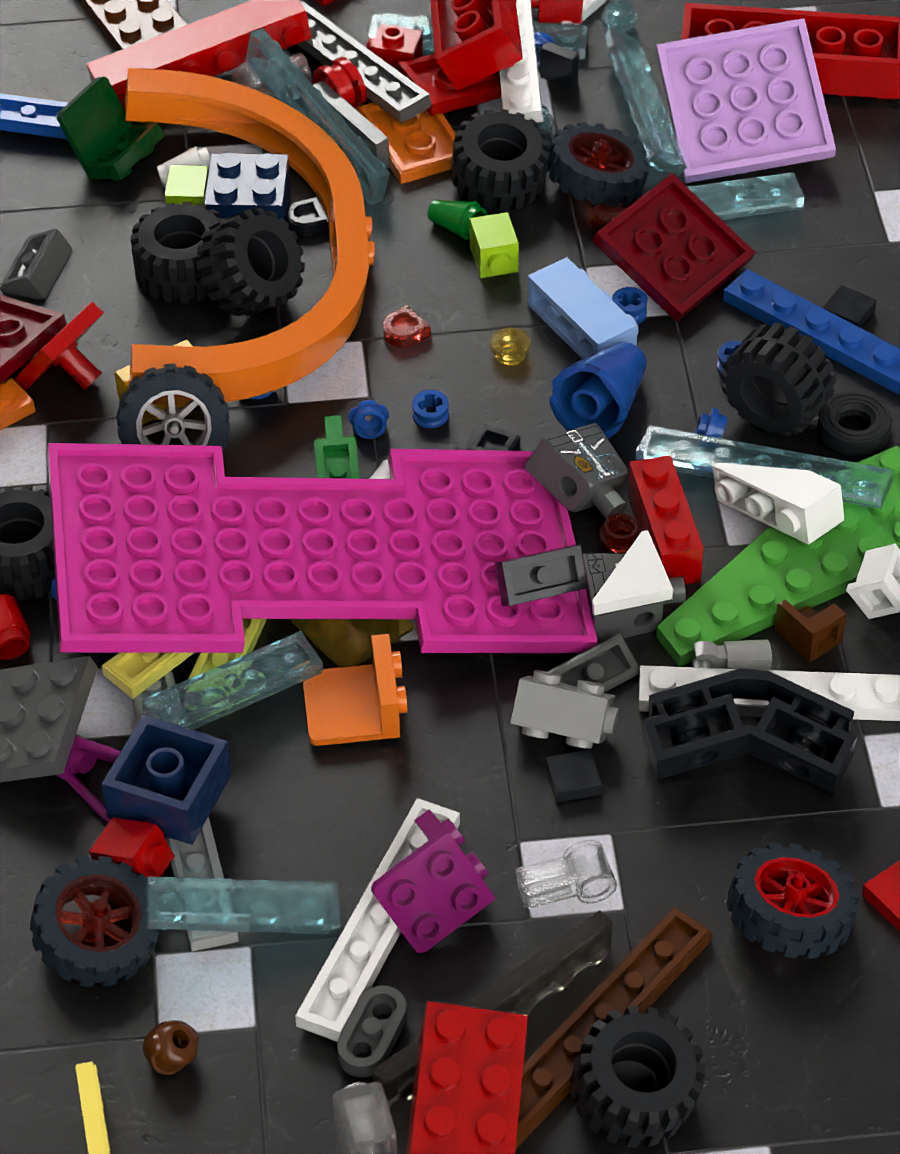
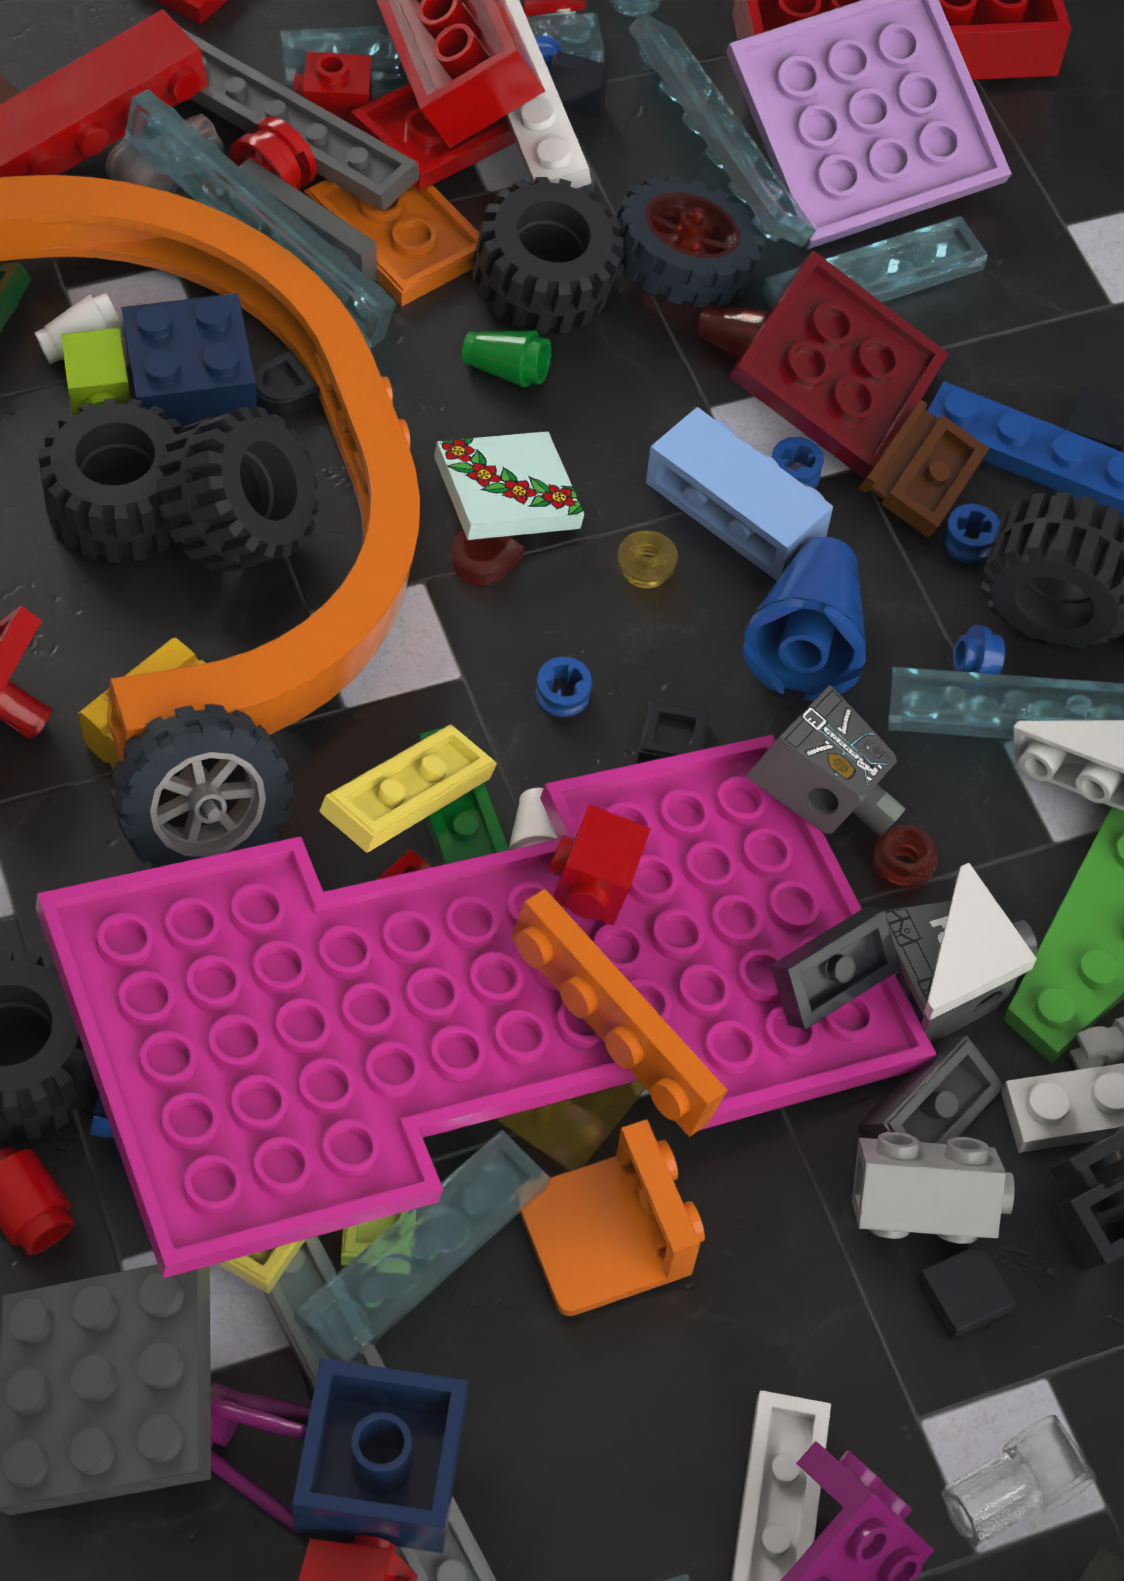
camera: 20 degrees left, 10 degrees up
(301, 436) = (407, 788): none -> light yellow tile
(372, 427) = (483, 721): blue plate -> none
(385, 568) = (618, 1013): none -> orange plate
(403, 490) = (598, 864): none -> red brick
(431, 290) = (508, 485): none -> light aqua tile
(494, 245) = (576, 396): lime brick -> none
(664, 511) = (968, 819): red brick -> none
(713, 316) = (924, 469): none -> reddish brown plate

